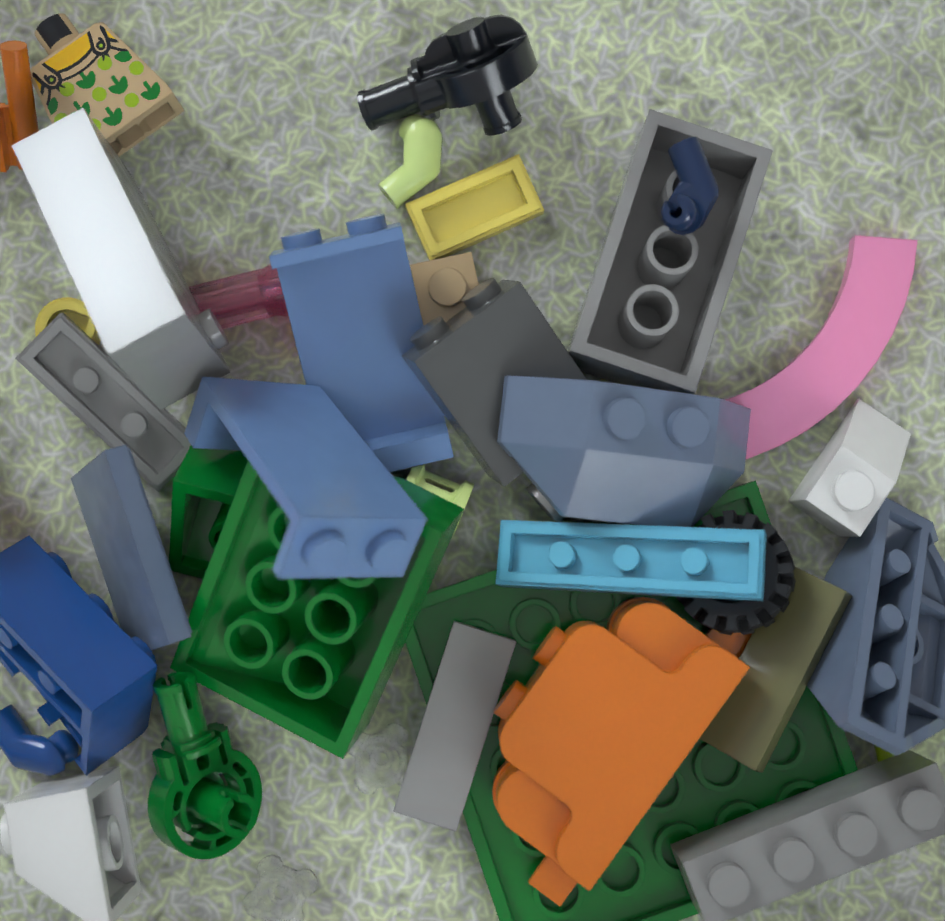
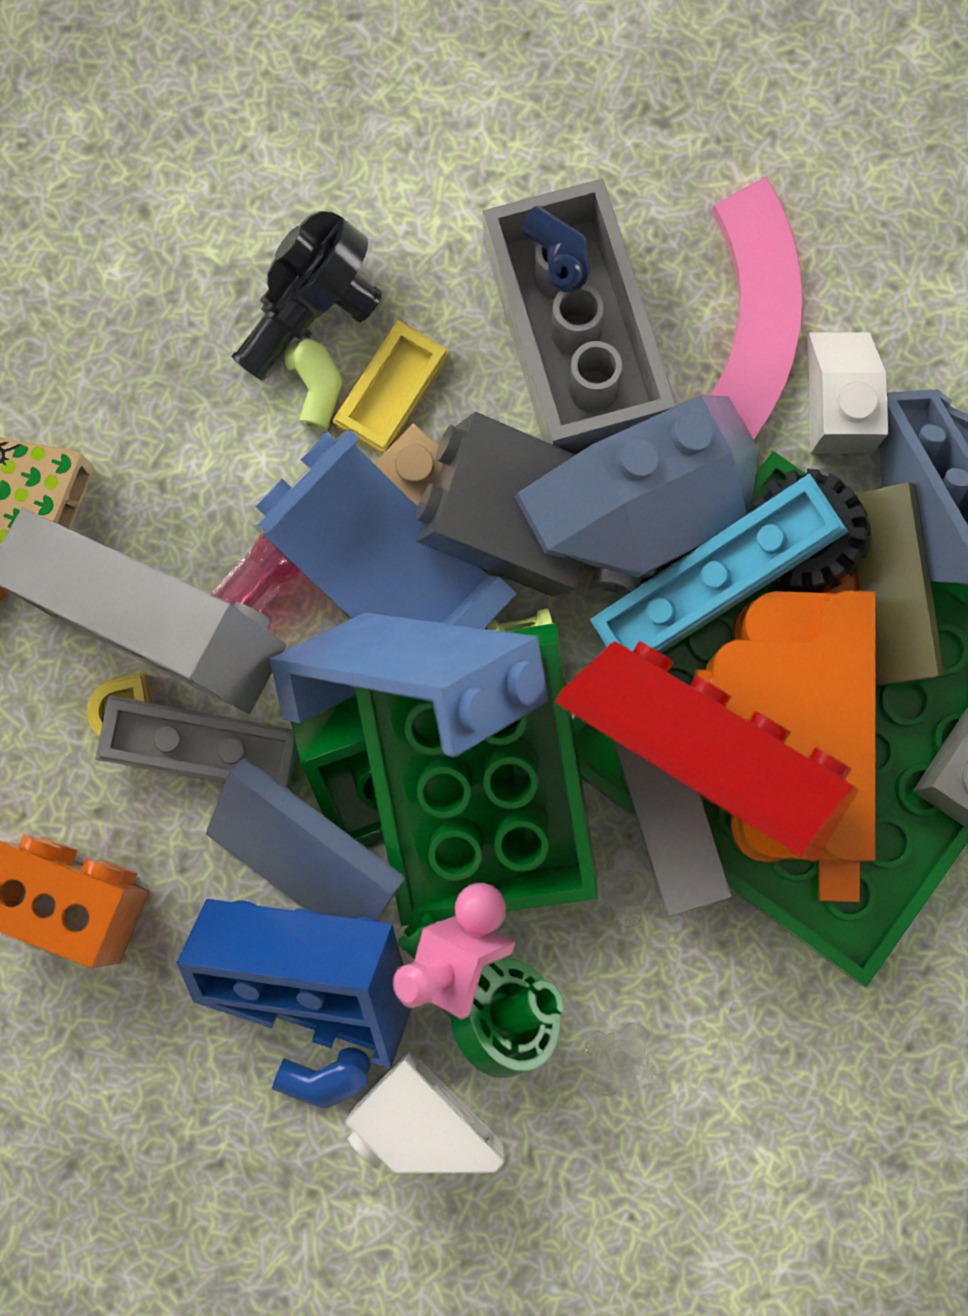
camera: 25 degrees left, 5 degrees down
(188, 727) = (455, 953): none -> bright pink piece
(509, 712) = (712, 748): none -> red slope

